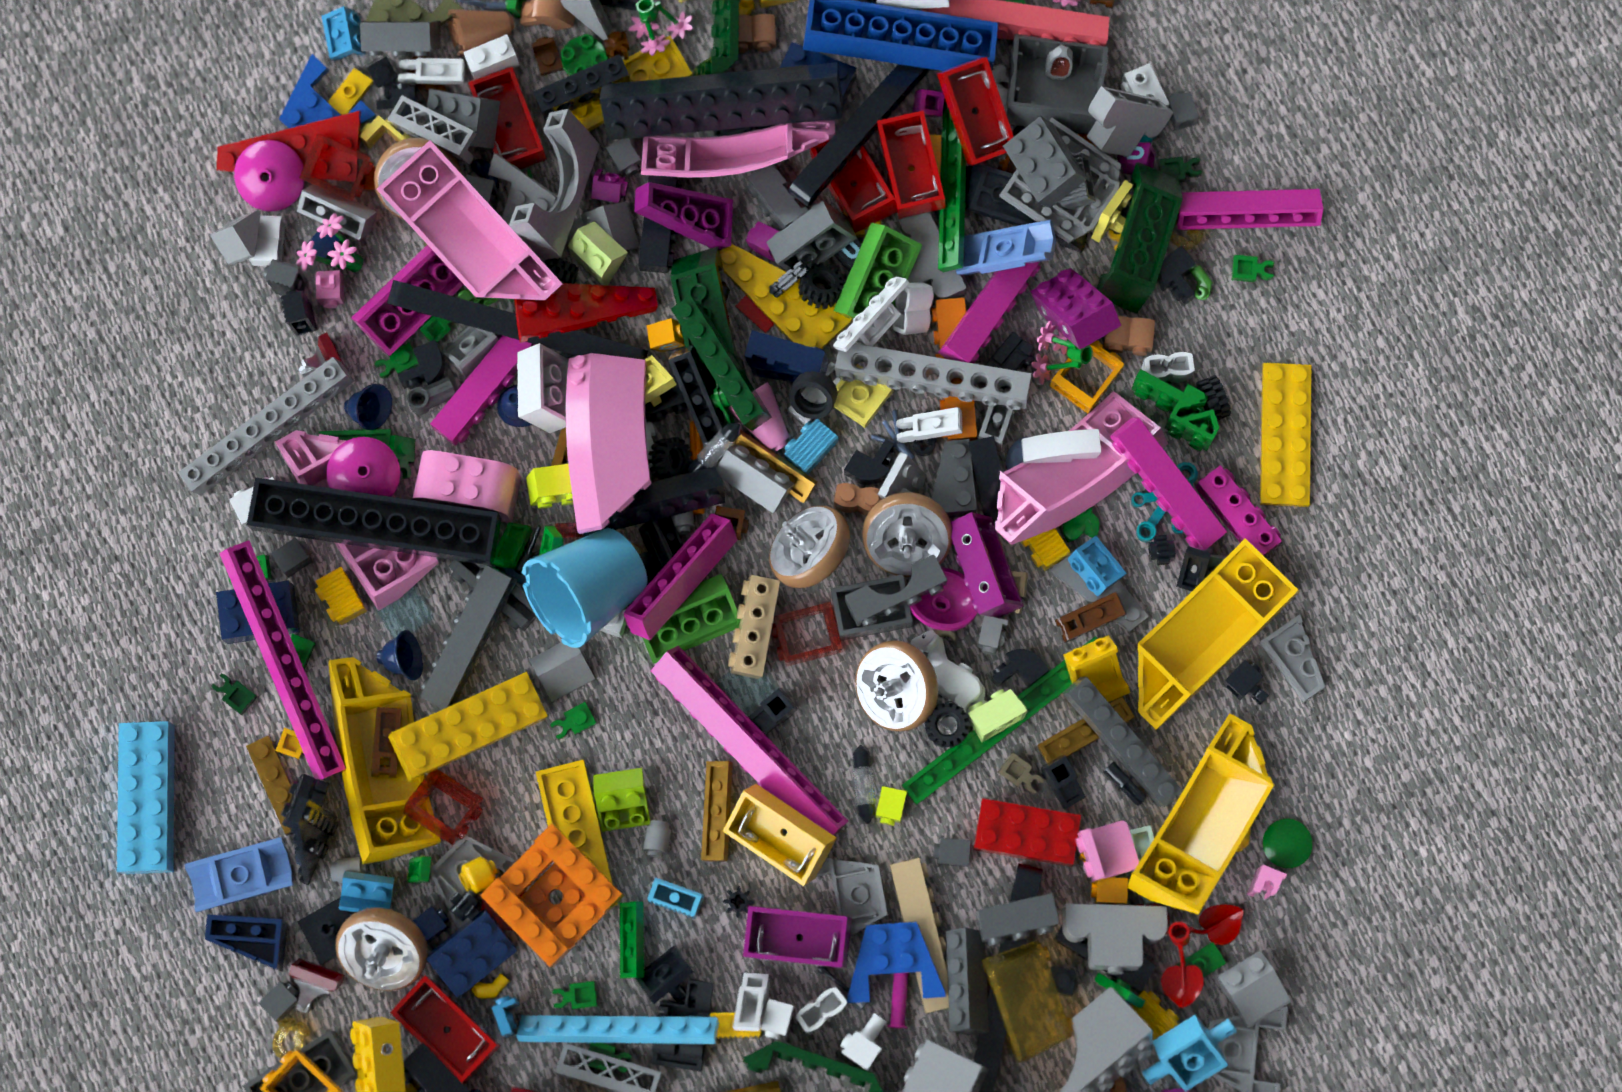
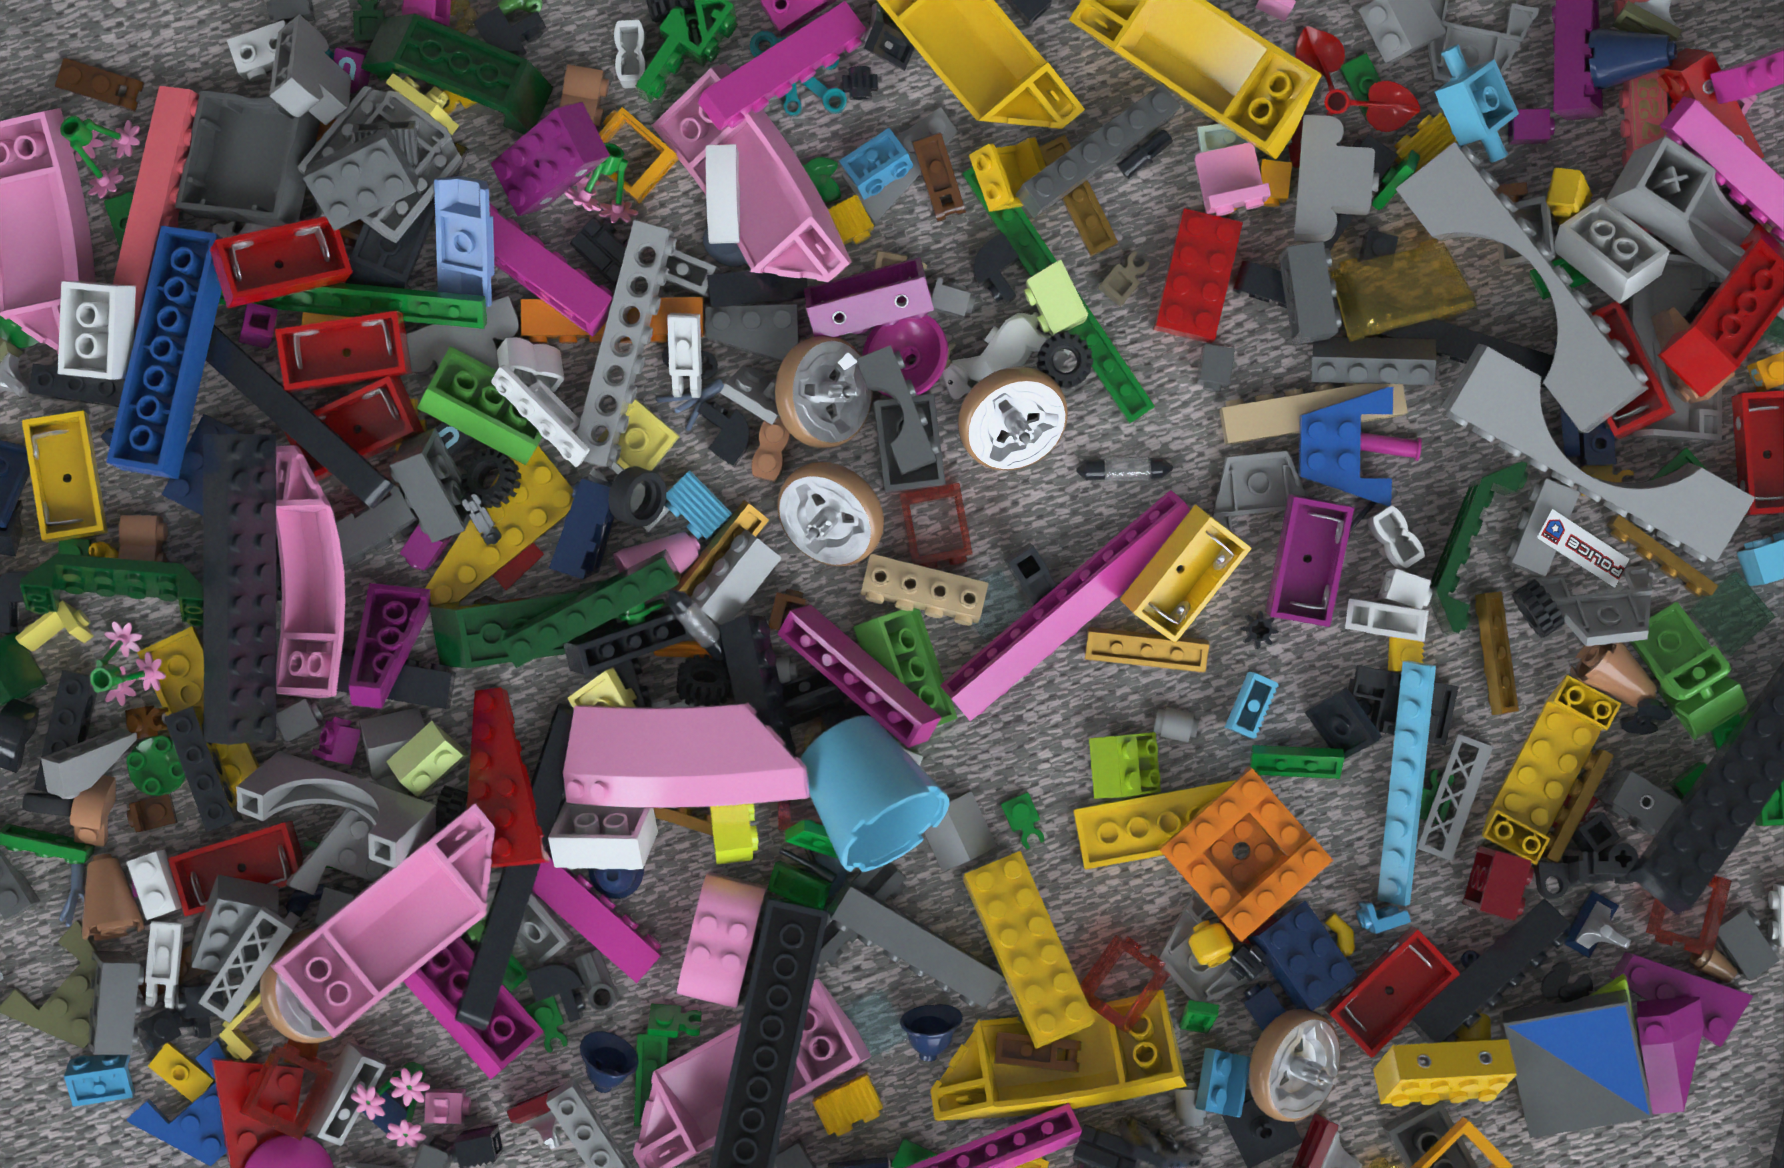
camera: 90 degrees left, 10 degrees up
(366, 452) = (673, 1065): dark pink dish -> none
(580, 995) = (1358, 826): green plate -> none
(665, 335) = (541, 679): light orange brick -> none
(861, 1045) = (1442, 493): white brick -> none
(890, 805) = (1154, 438): neon yellow brick -> none
(1059, 63) = (218, 154): light grey rock -> none
(1063, 781) = (1139, 227): black brick -> none

